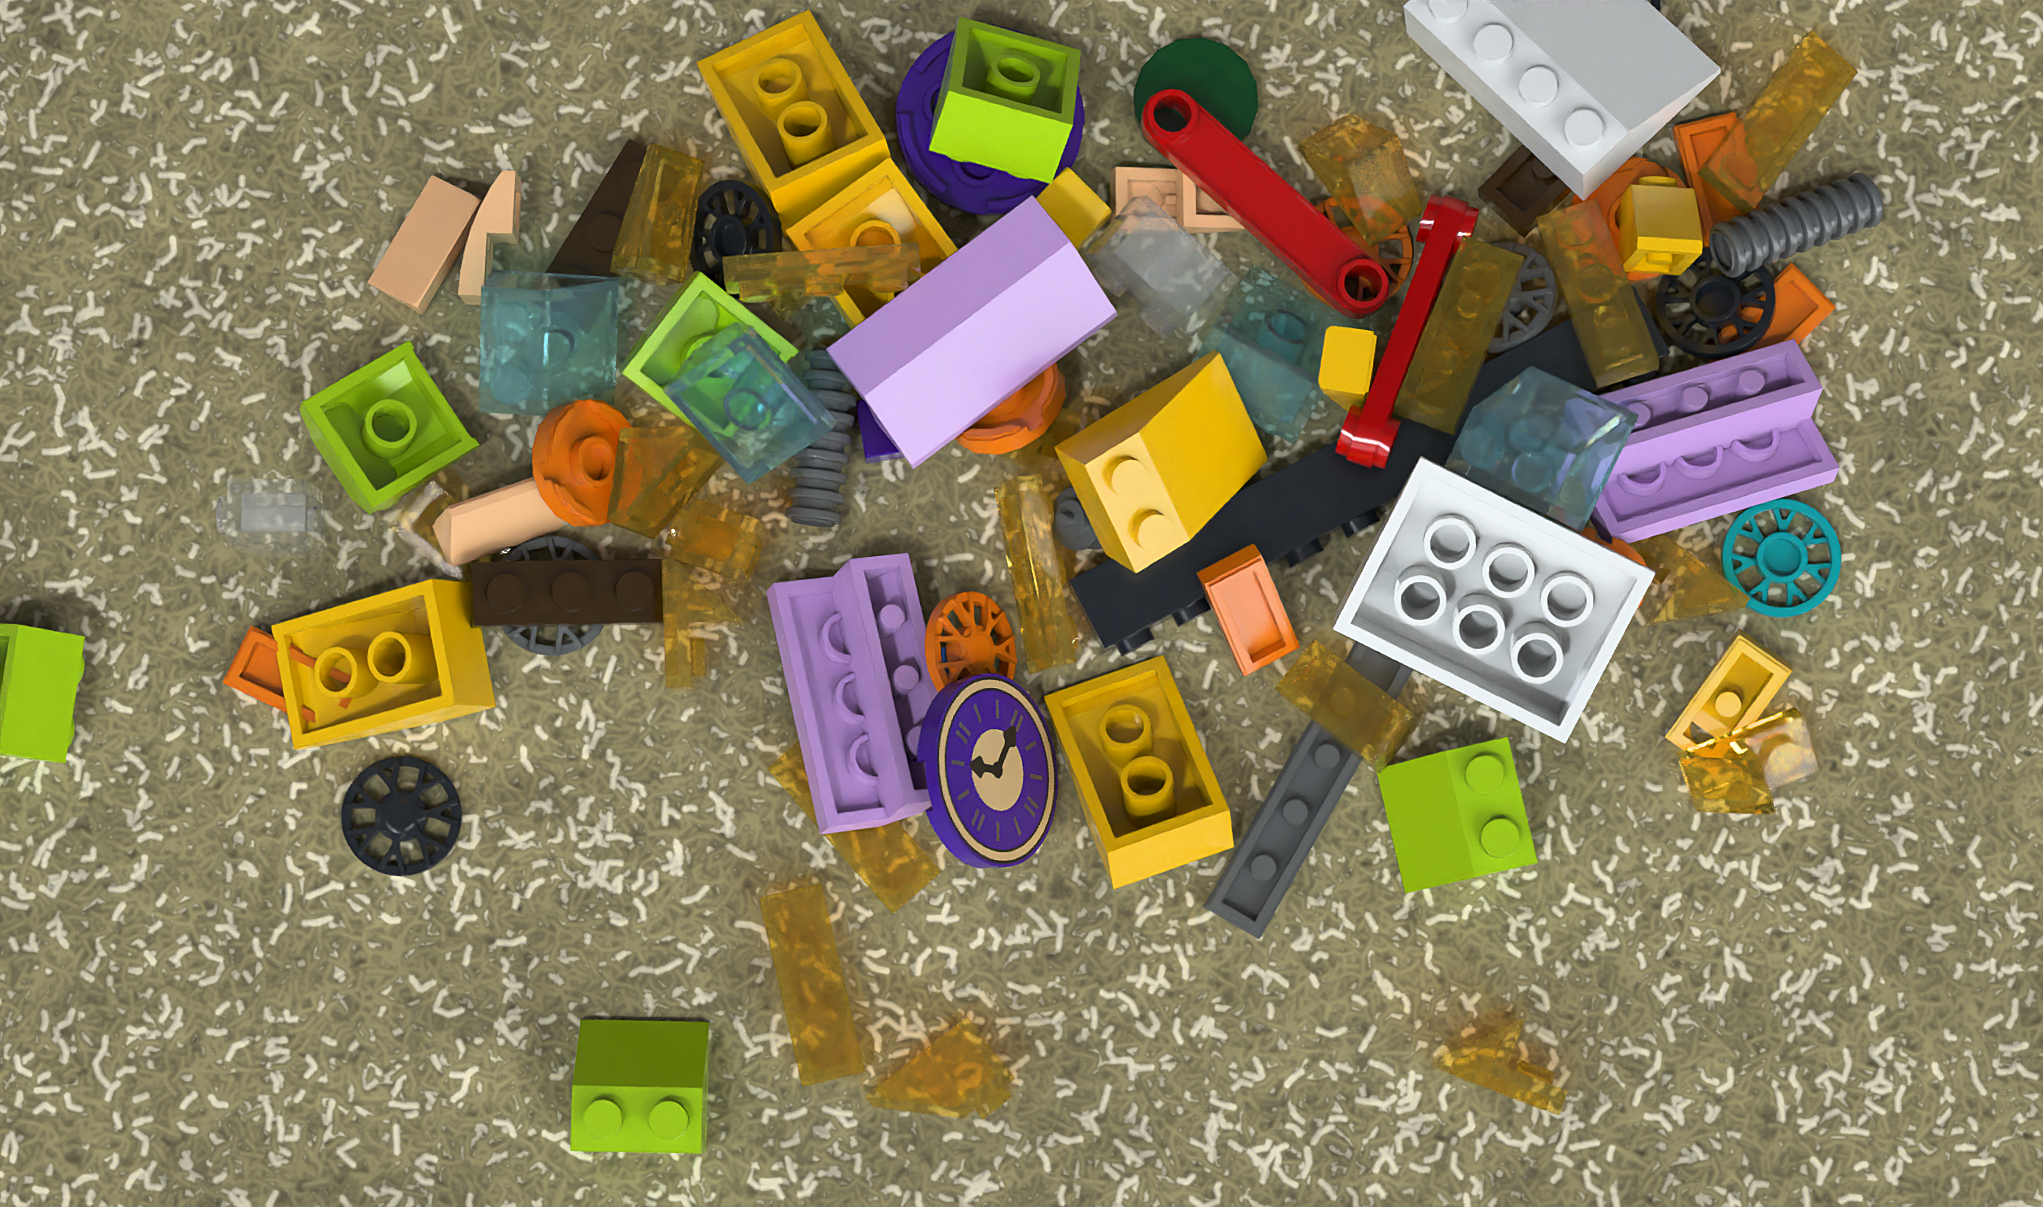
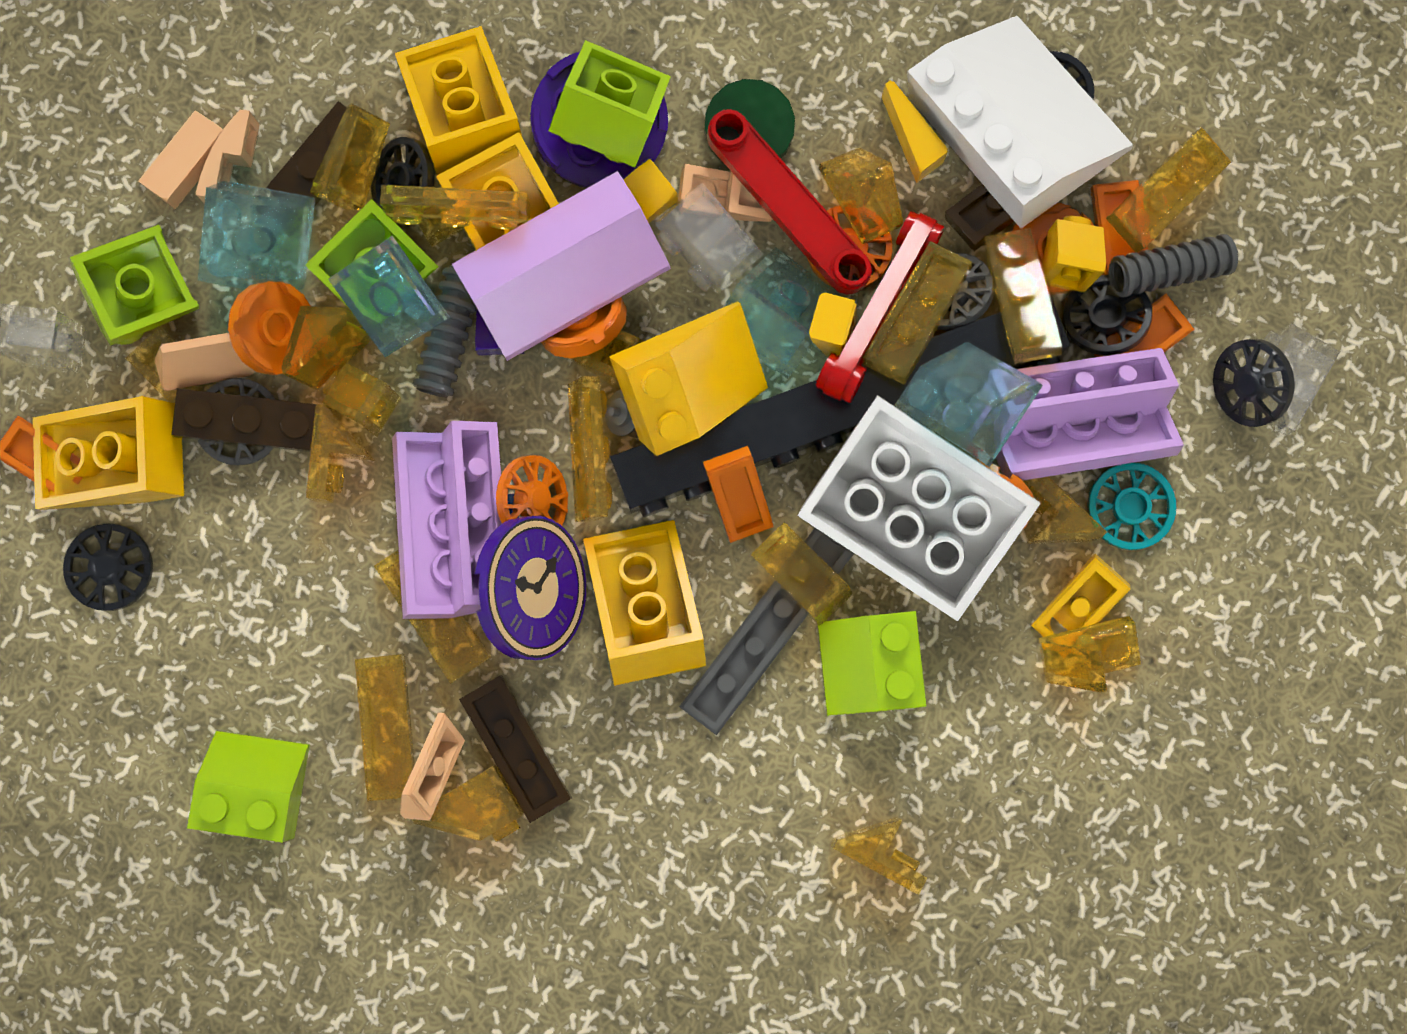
camera: 10 degrees right, 0 degrees up
(887, 1033) = (431, 770): none -> light nougat slope
(991, 991) = (515, 748): none -> dark brown plate
(1428, 95) = (918, 140): none -> yellow slope
(1922, 371) = (1253, 382): none -> black wheel
(1974, 353) = (1310, 364): none -> clear slope

